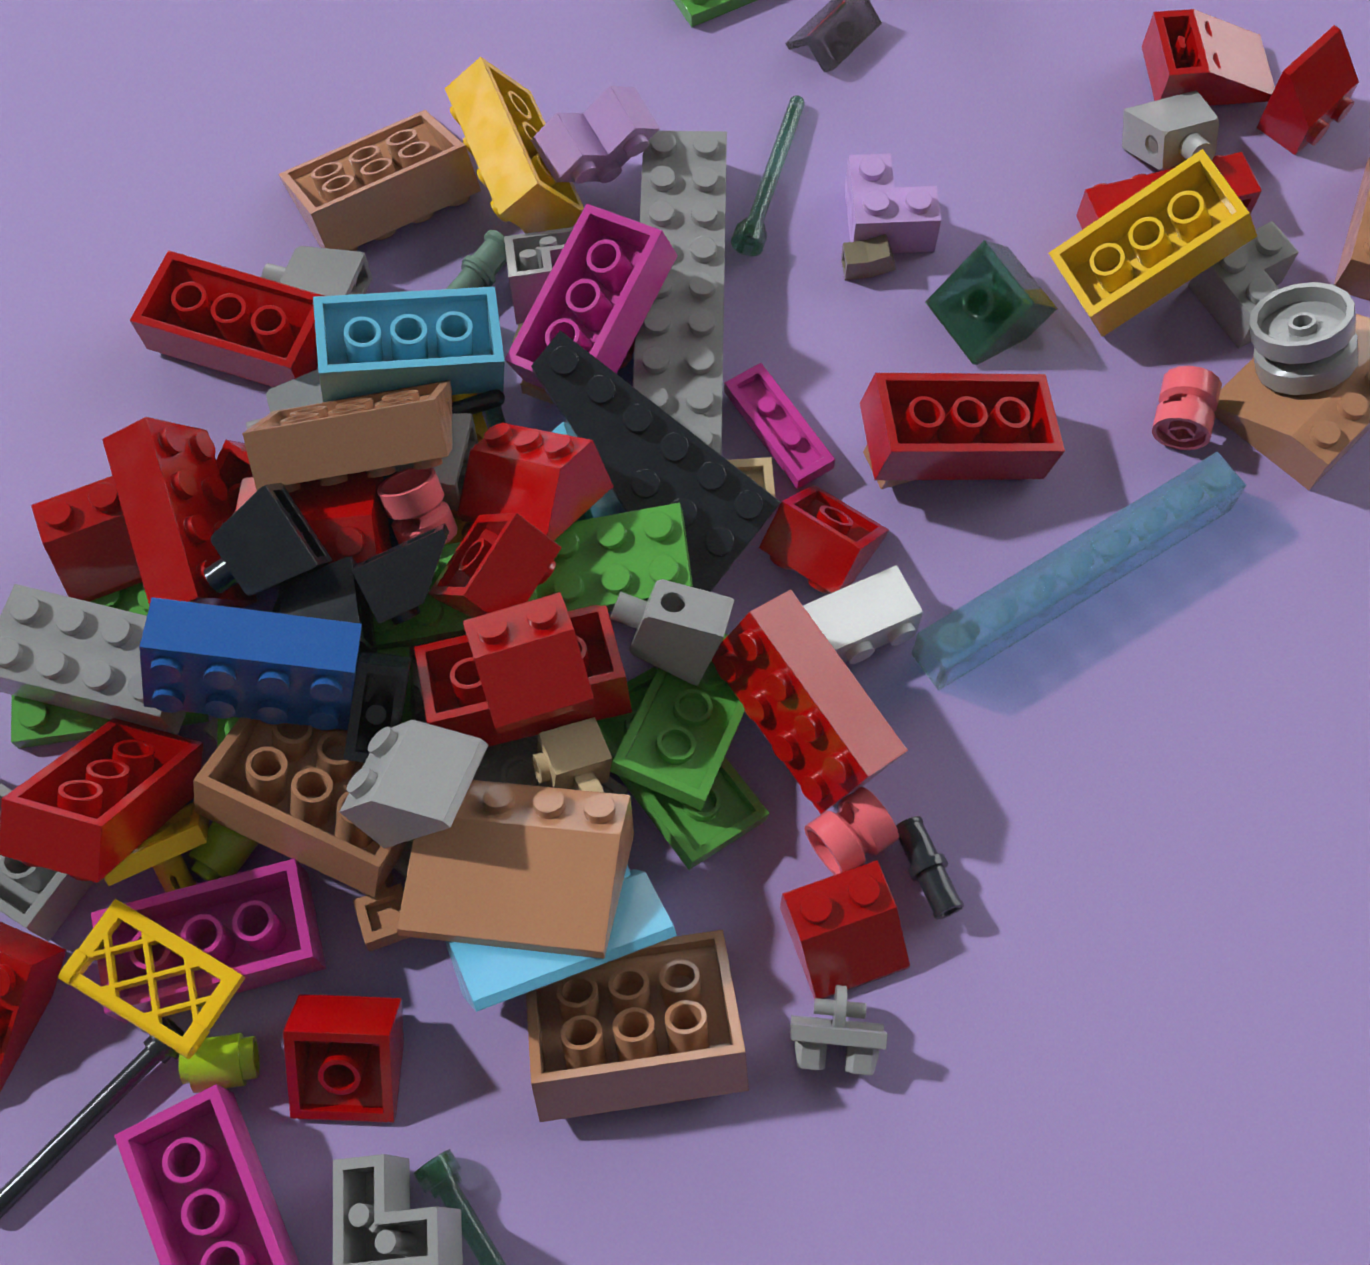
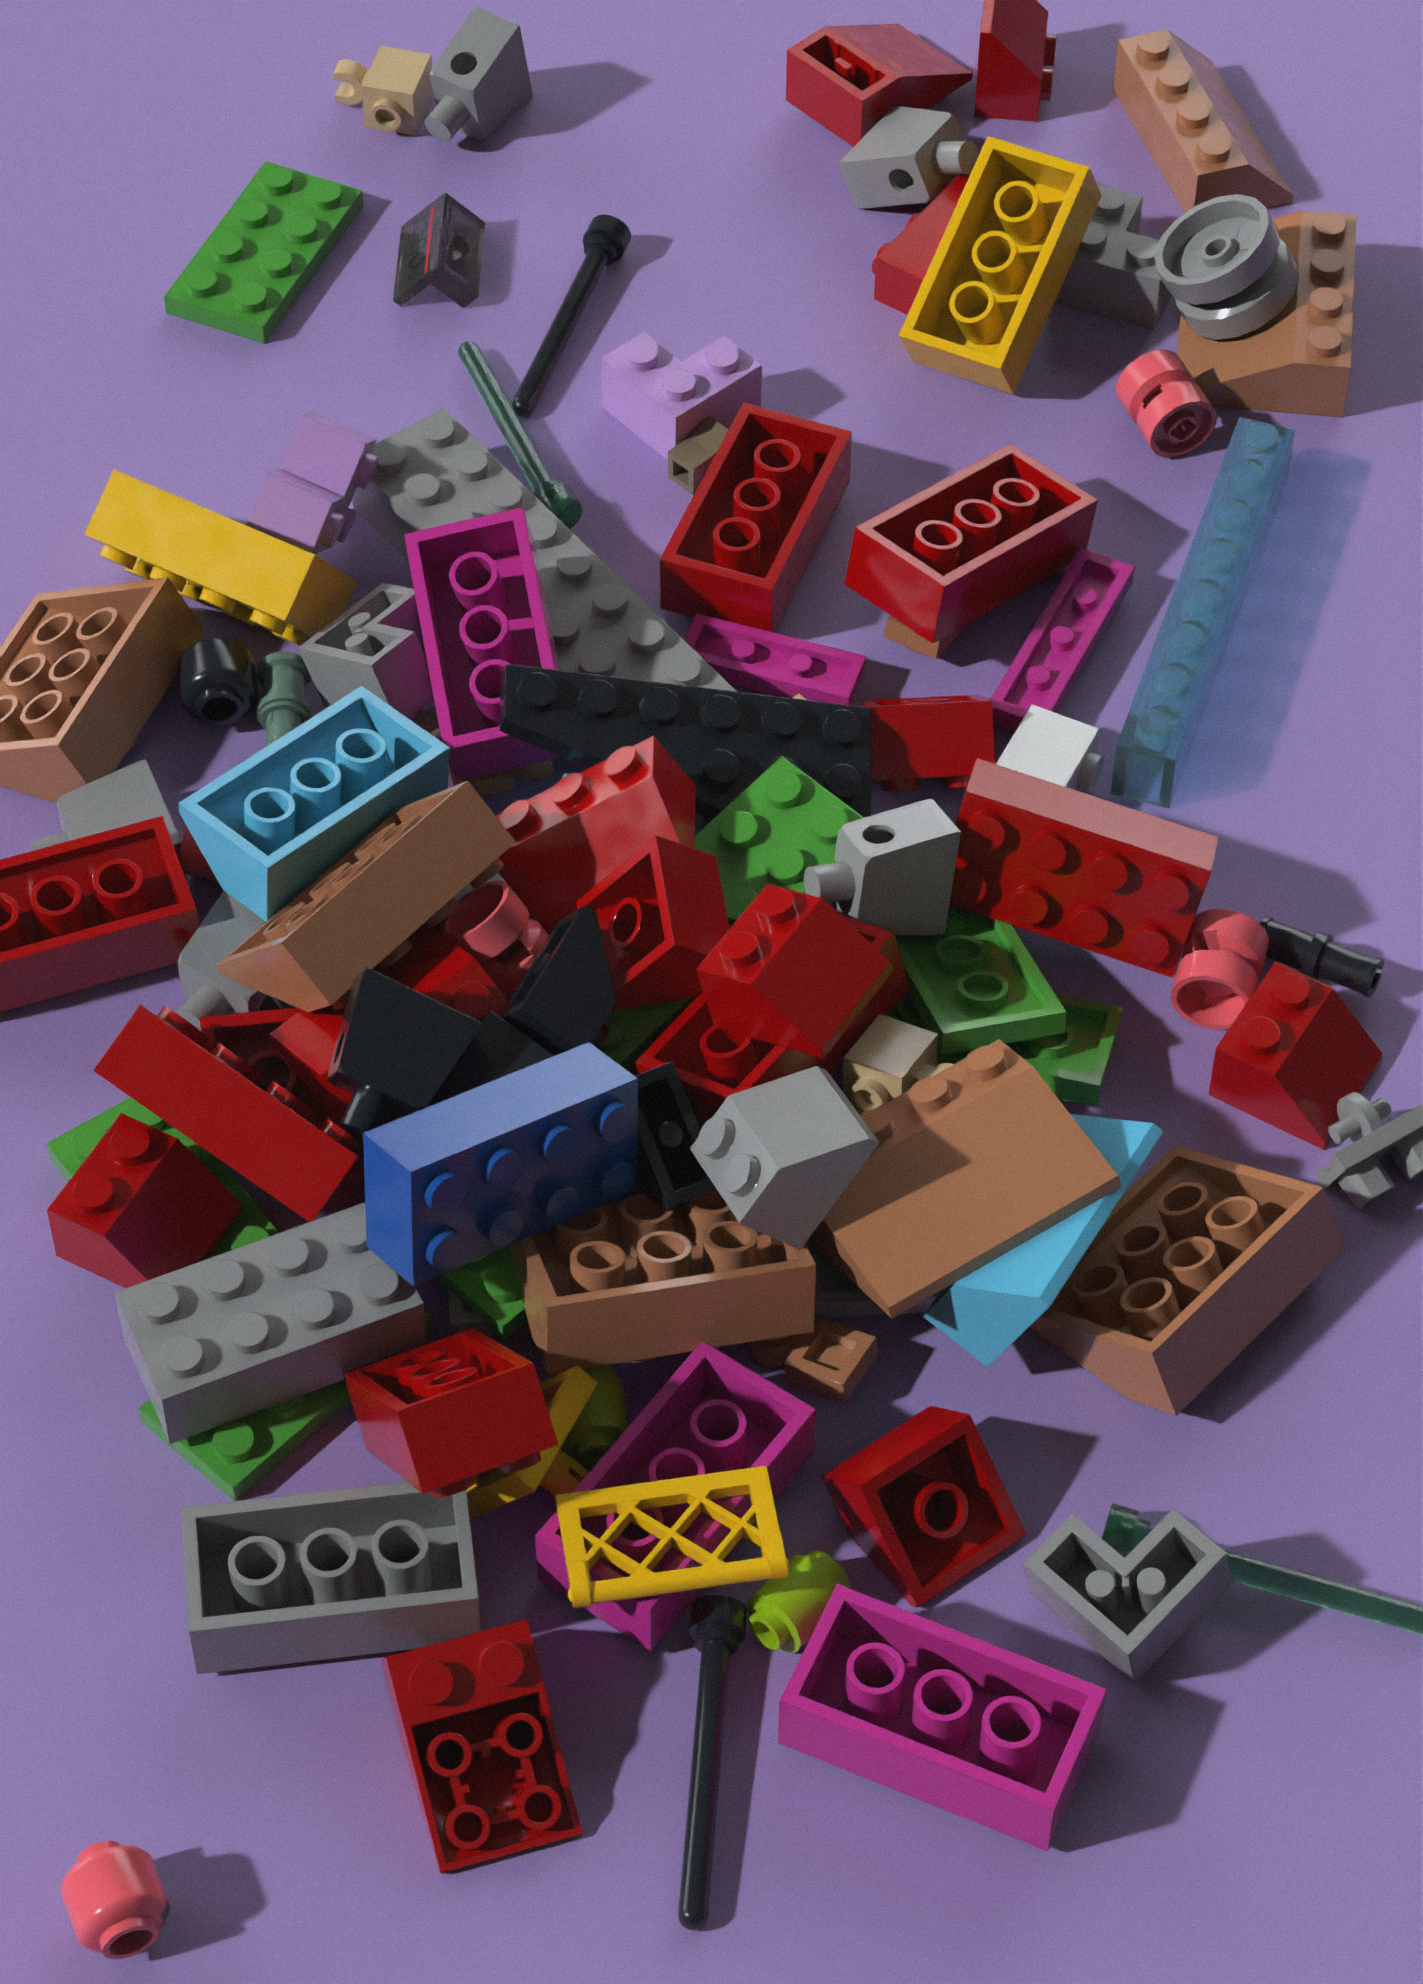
camera: 40 degrees left, 15 degrees down
(456, 227) = (217, 680): none -> black head
(850, 322) = (756, 518): none -> red brick
(937, 79) = (603, 244): none -> black piece
(969, 529) = (1062, 637): none -> dark pink plate
(990, 303) = (890, 416): clear green slope -> none

